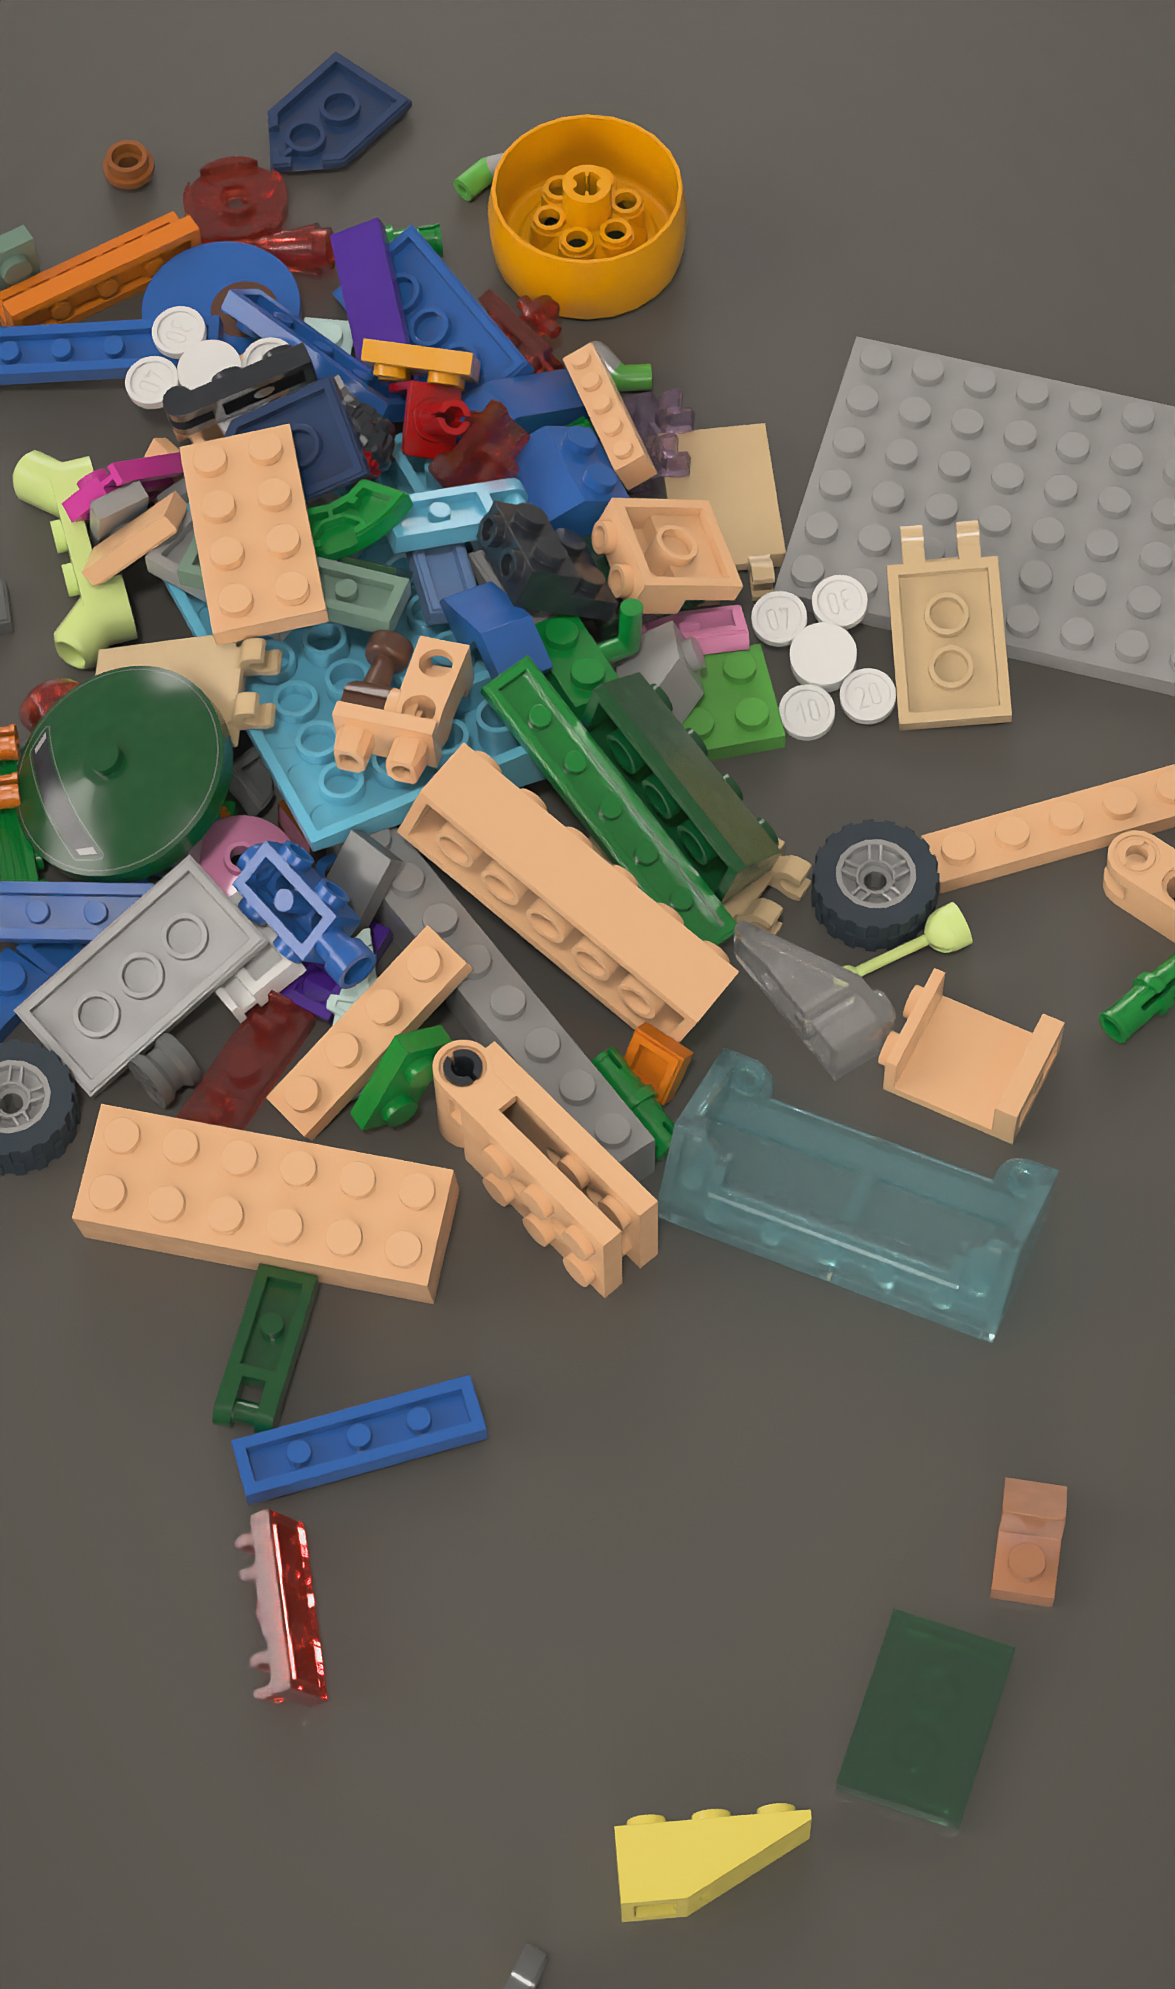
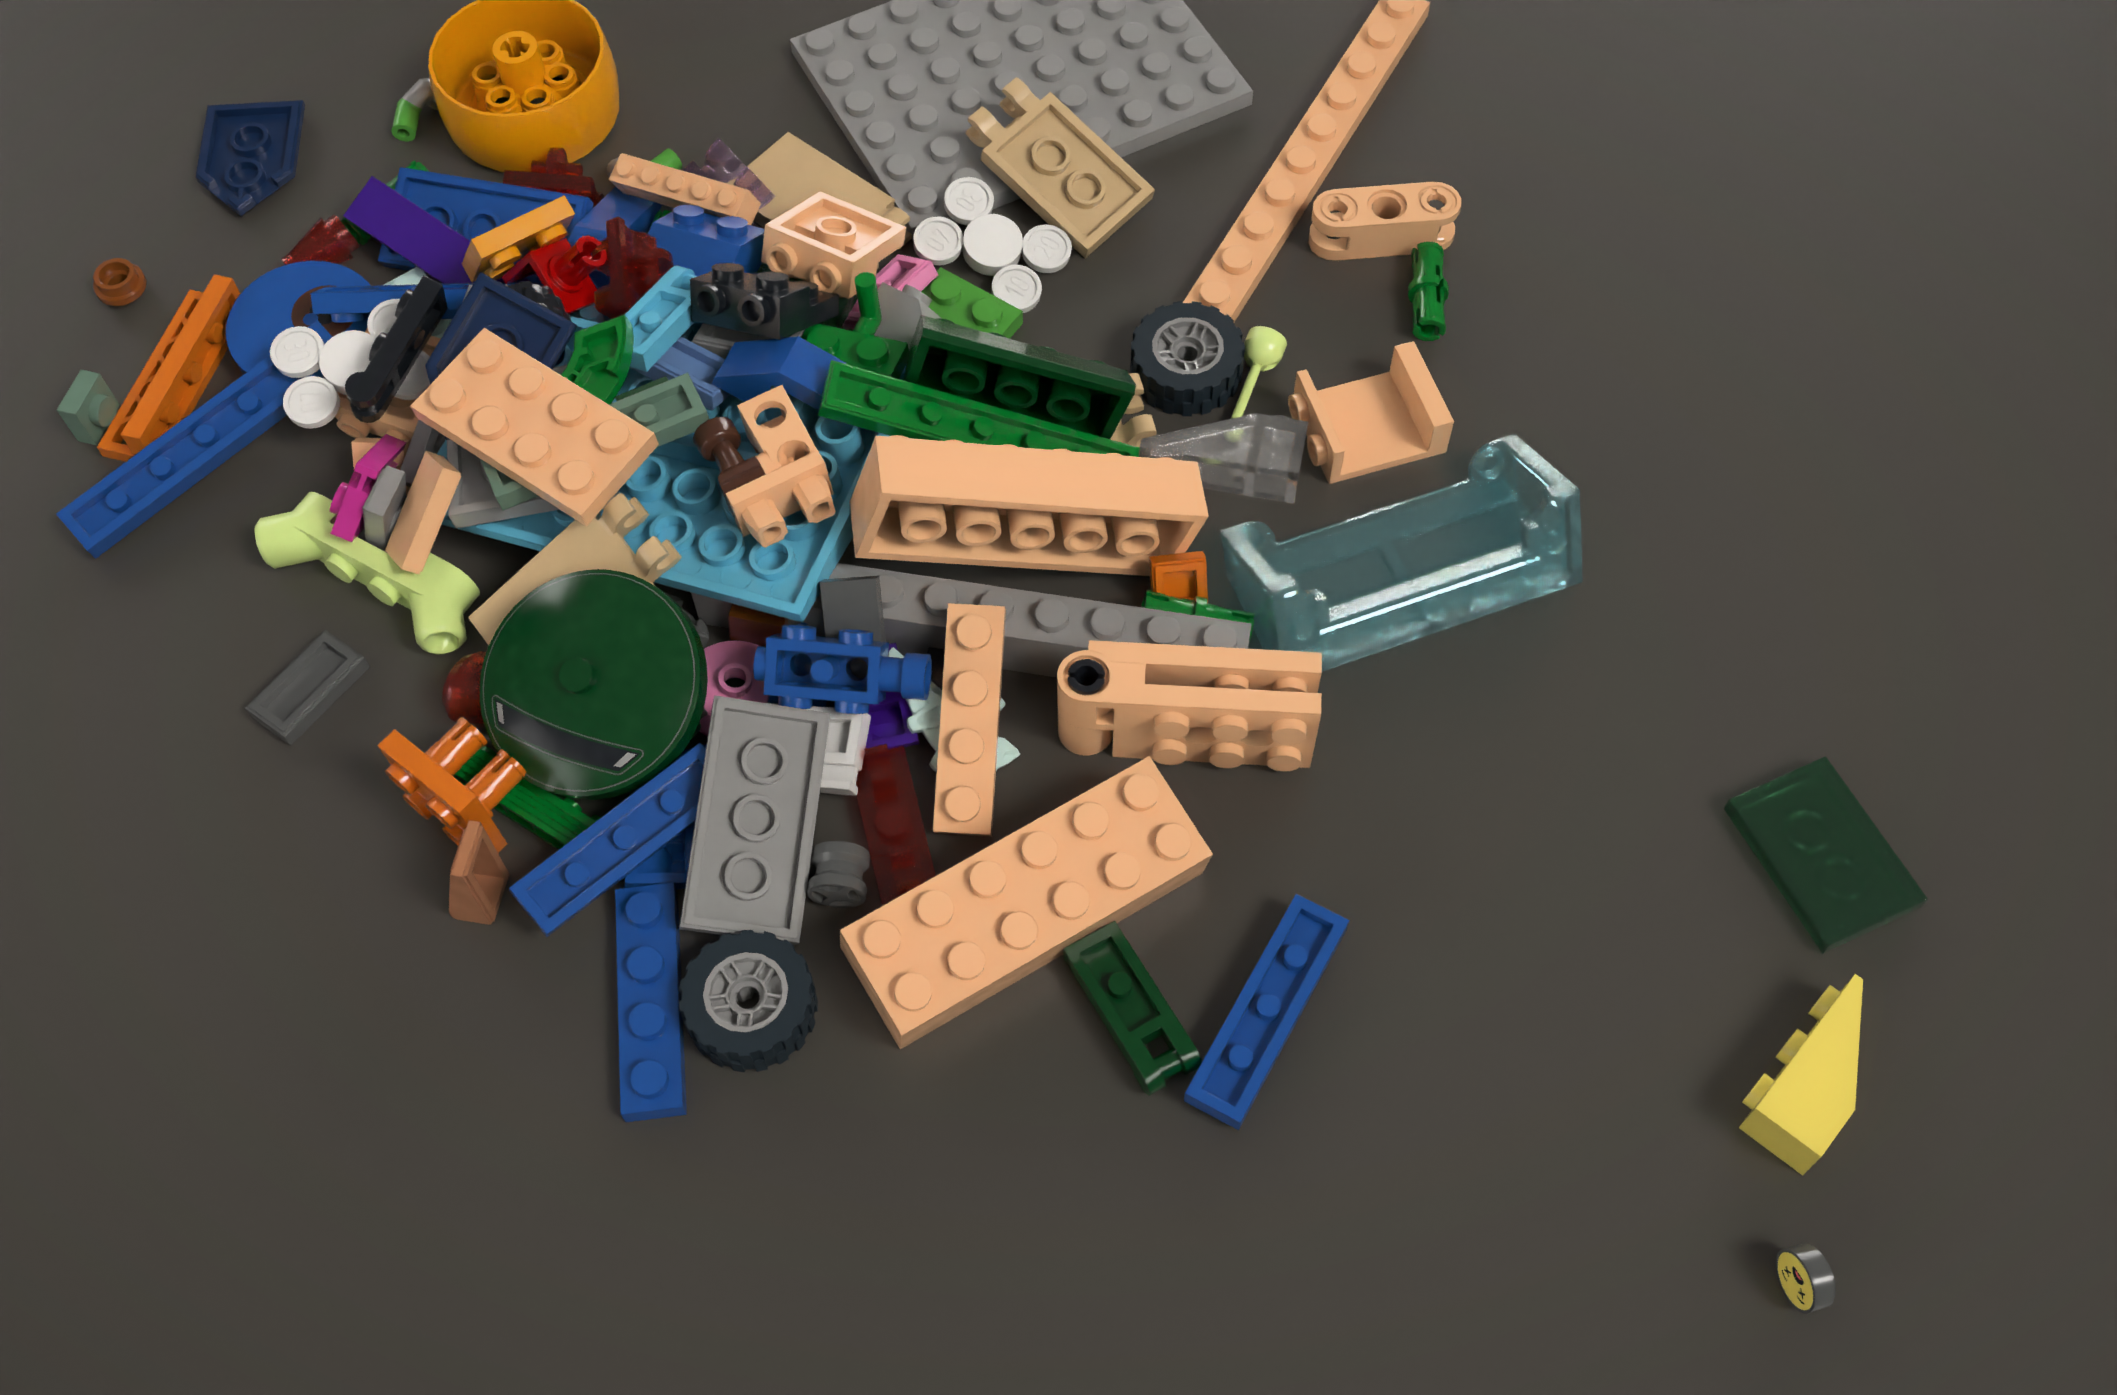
camera: 45 degrees left, 0 degrees up
(230, 179) = (219, 233): clear red plate -> none
(284, 1610) = (1355, 1180): clear red plate -> none
(399, 1079) = (1036, 710): green plate -> none
(1029, 1542) = (1742, 677): nougat slope -> none

